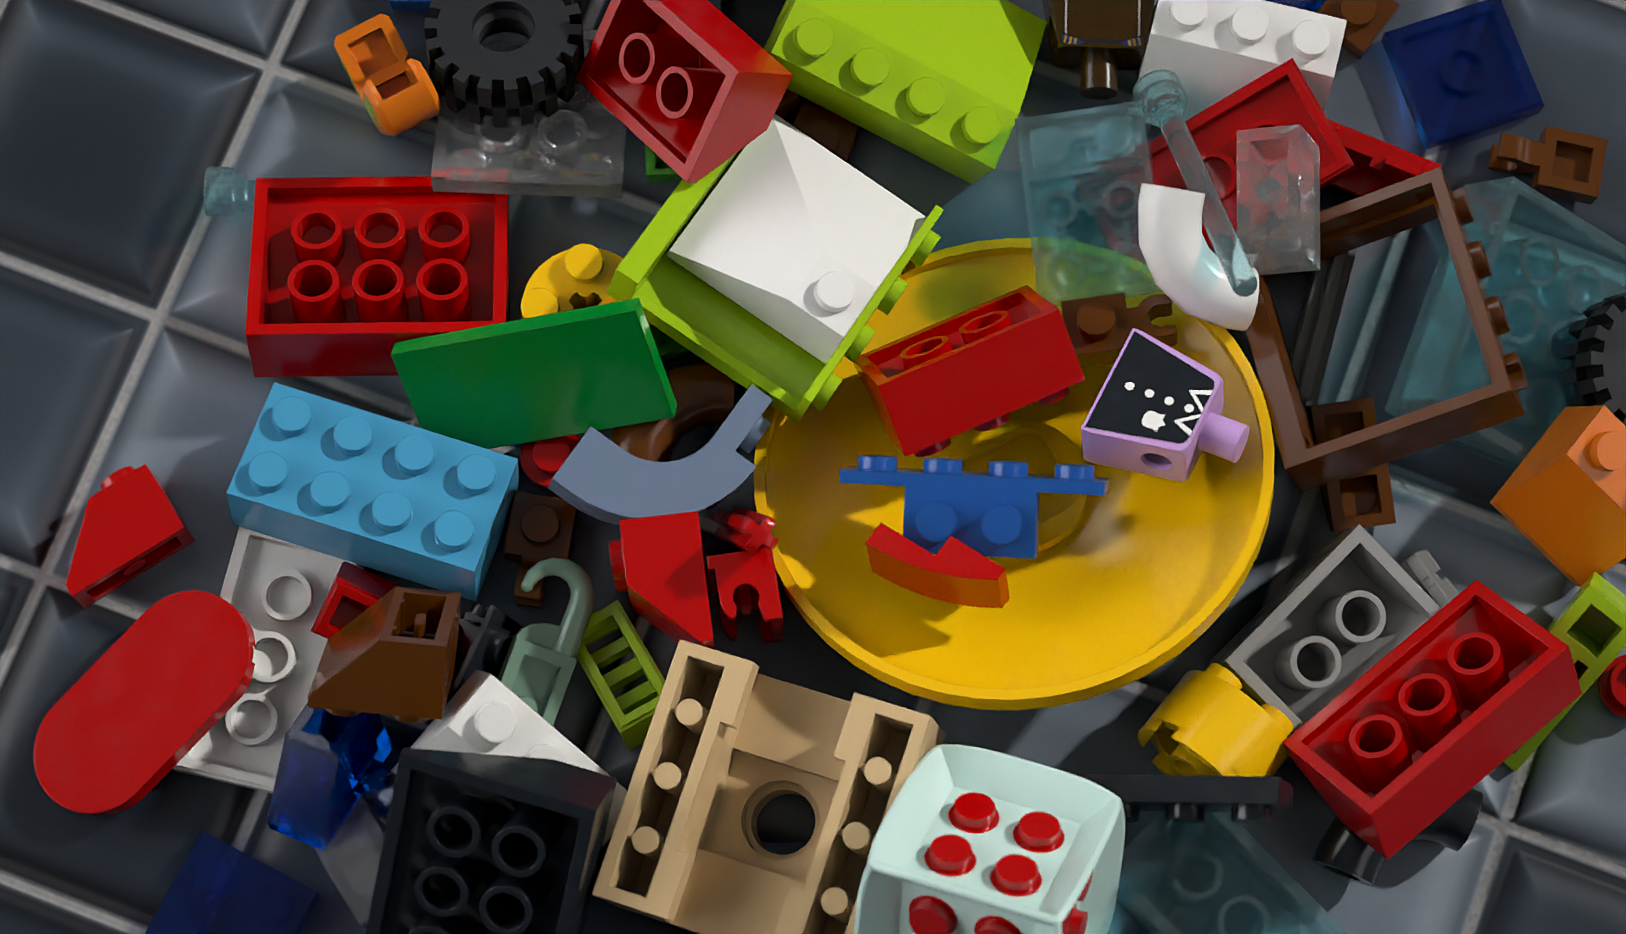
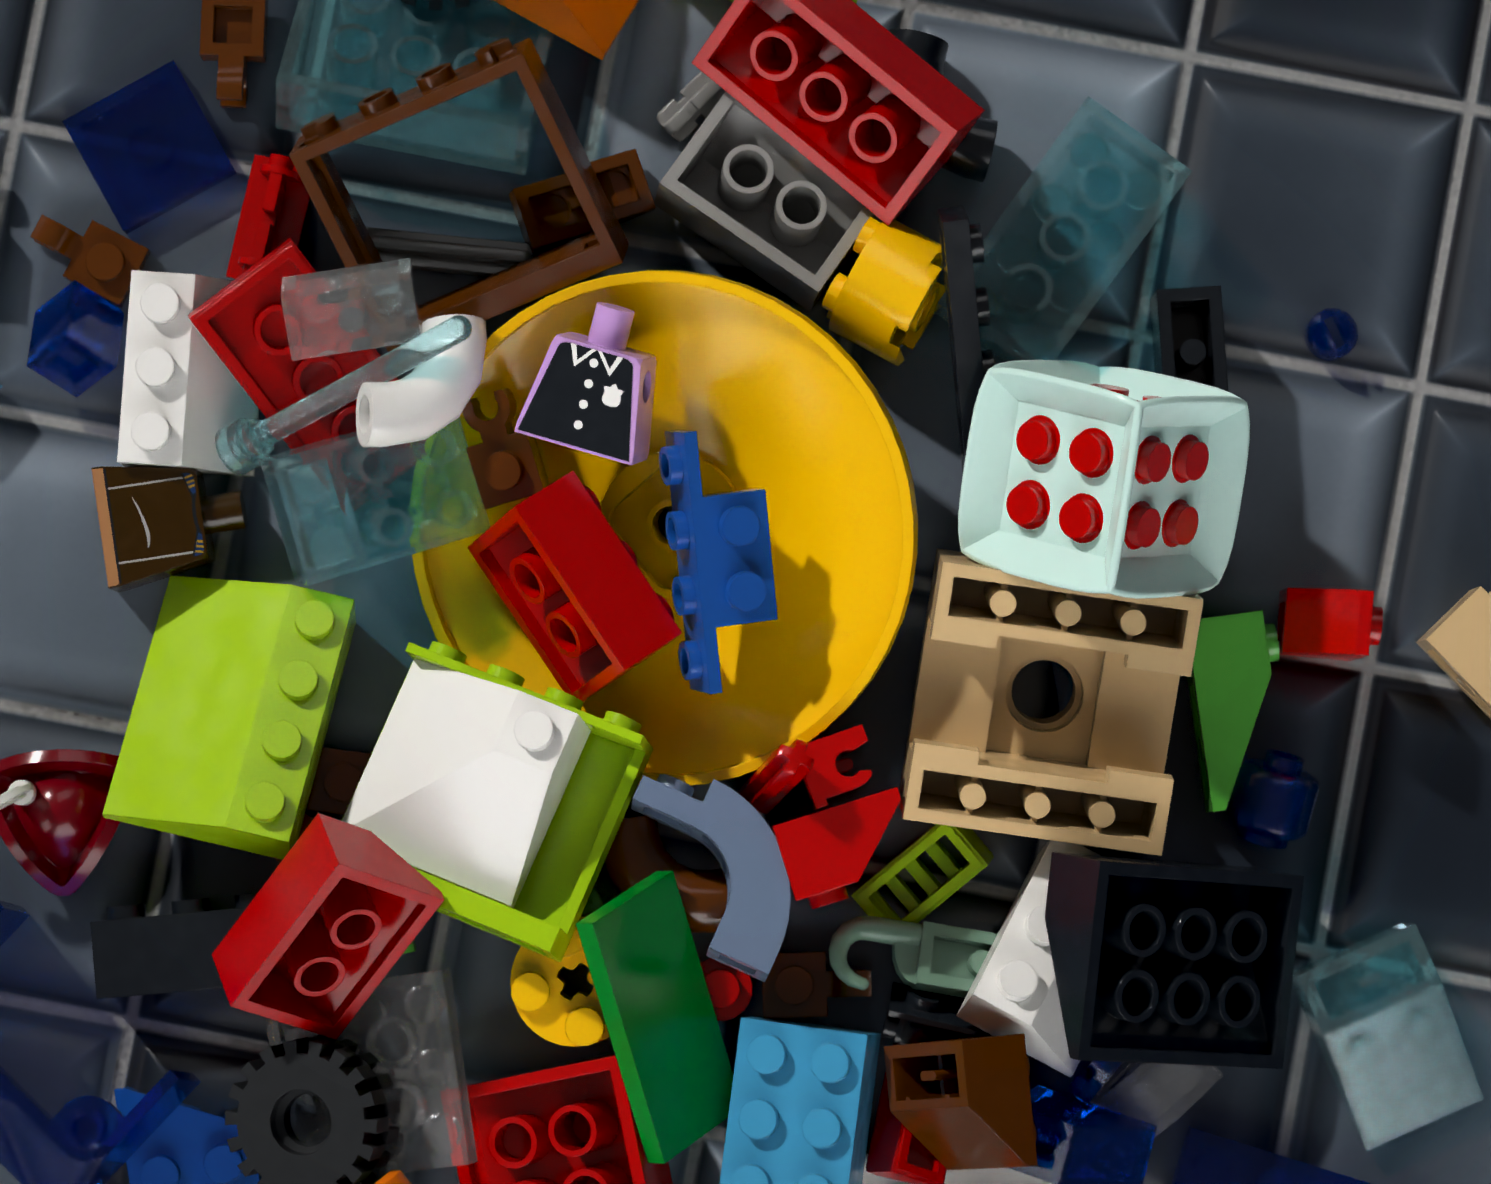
camera: 100 degrees left, 10 degrees up
(951, 576) = (795, 564): red slope -> none

